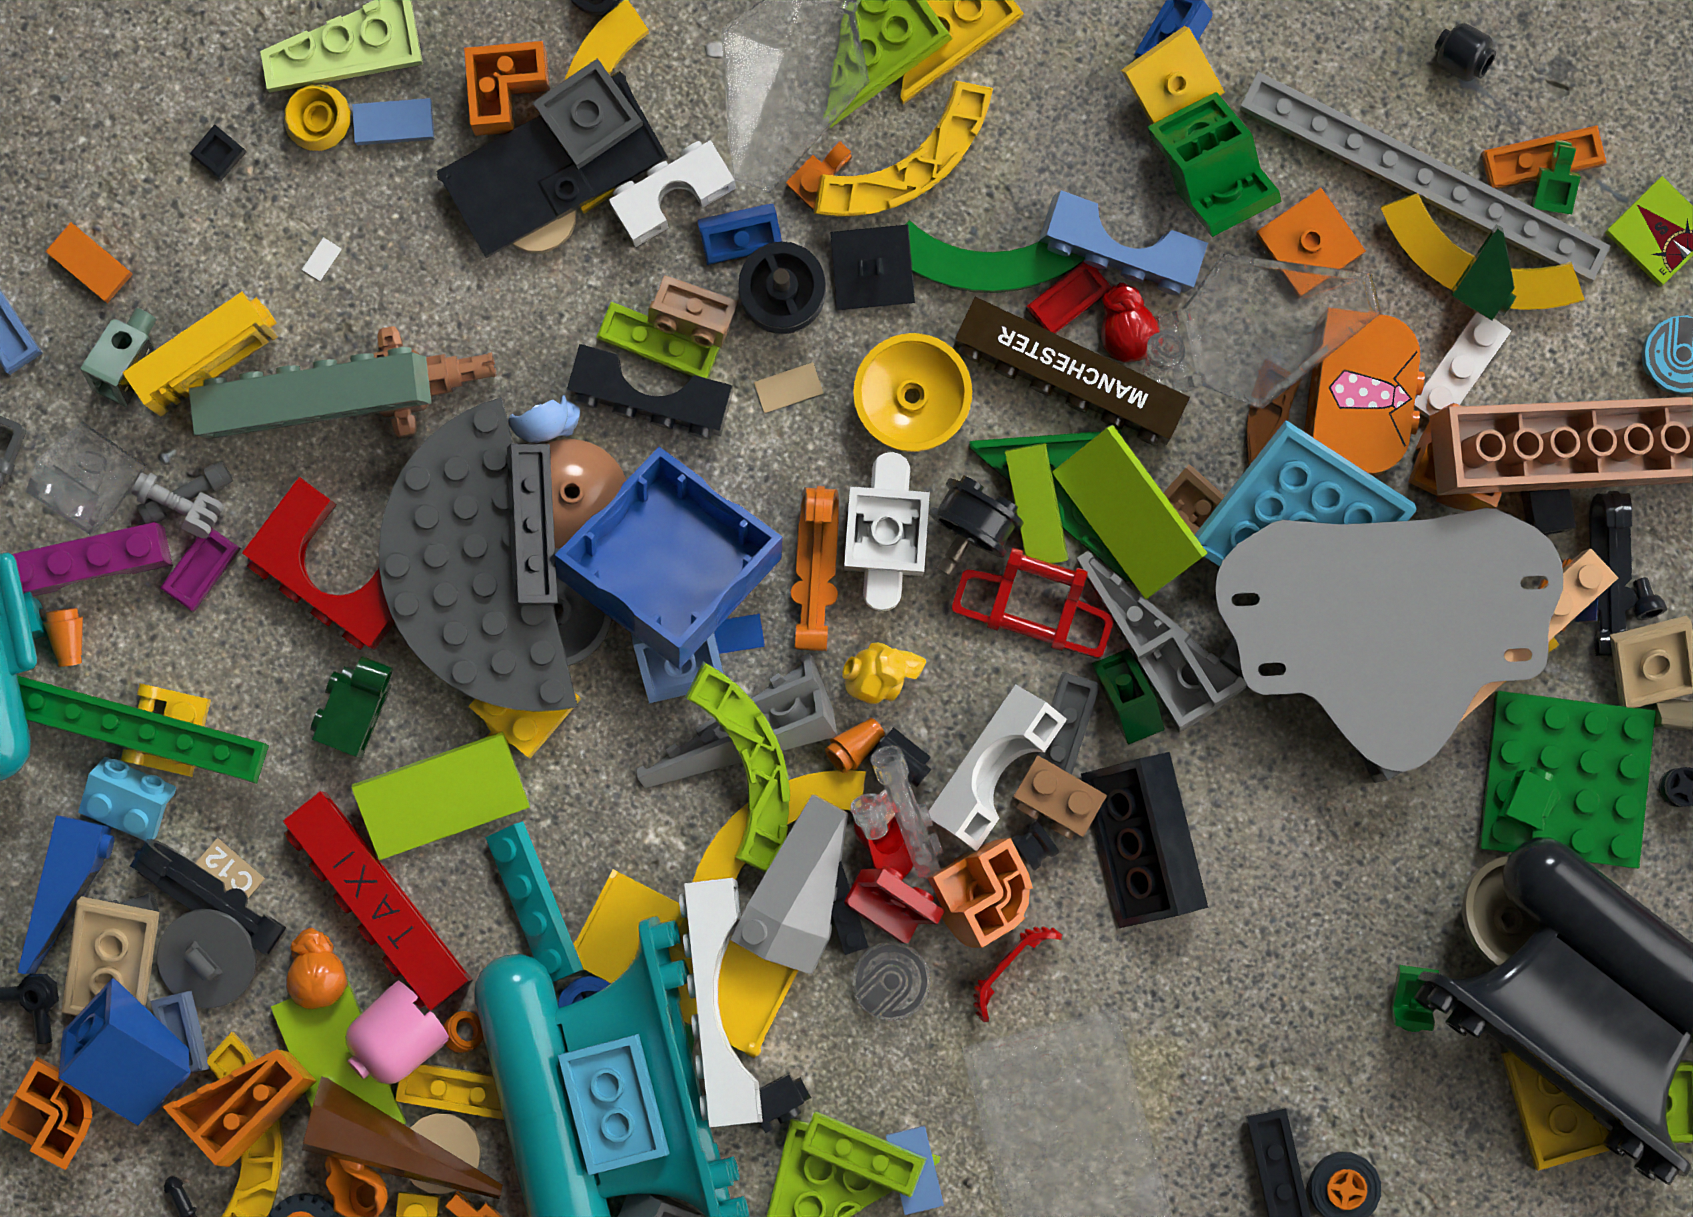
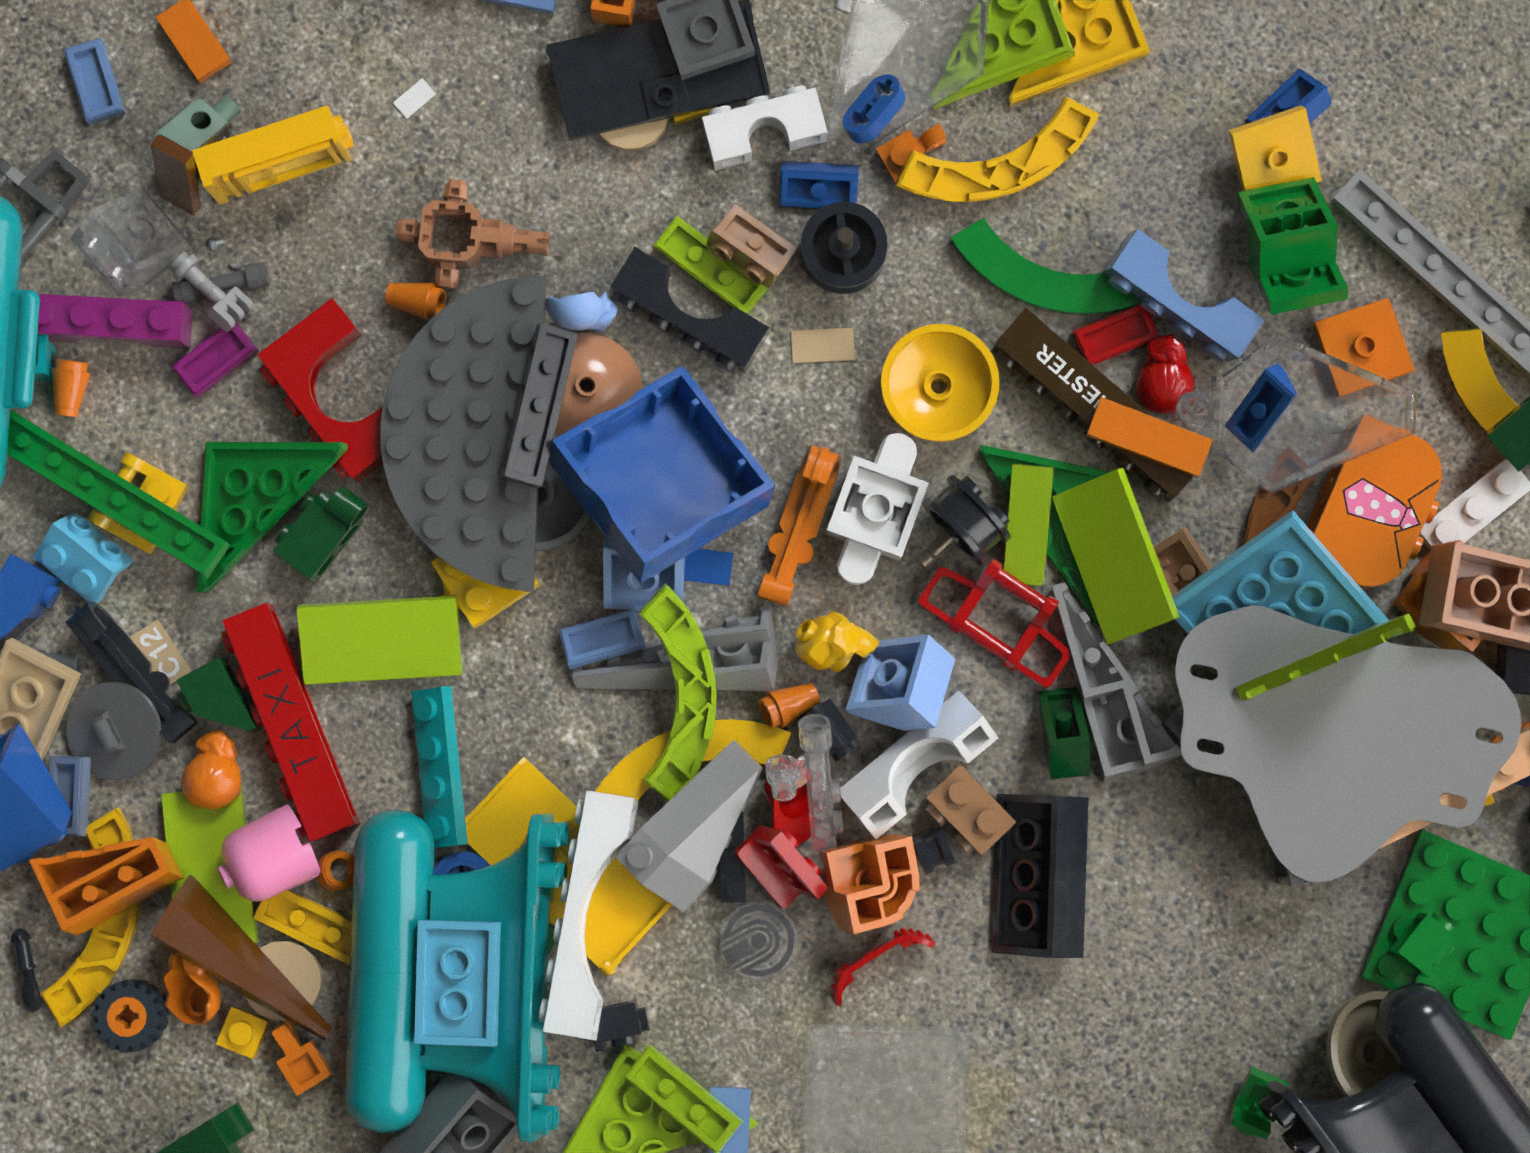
camera: 20 degrees right, 0 degrees up
(112, 400) = (176, 174): none -> reddish brown tile
(275, 682) = (253, 488): none -> green tile
(297, 896) = (216, 695): none -> dark green slope
(310, 394) = (365, 222): sand green brick -> none
(381, 454) = (417, 299): none -> orange cone
(656, 733) = (602, 638): none -> medium blue tile
(773, 144) = (873, 108): none -> blue beam
(872, 267) = (936, 253): black piece -> none
(959, 693) = (902, 683): none -> light blue slope
(1075, 702) = (1011, 723): dark grey tile -> none
(1129, 388) = (1149, 437): none -> orange tile
(1229, 328) = (1262, 407): none -> blue slope
(1356, 552) = (1326, 656): none -> lime tile

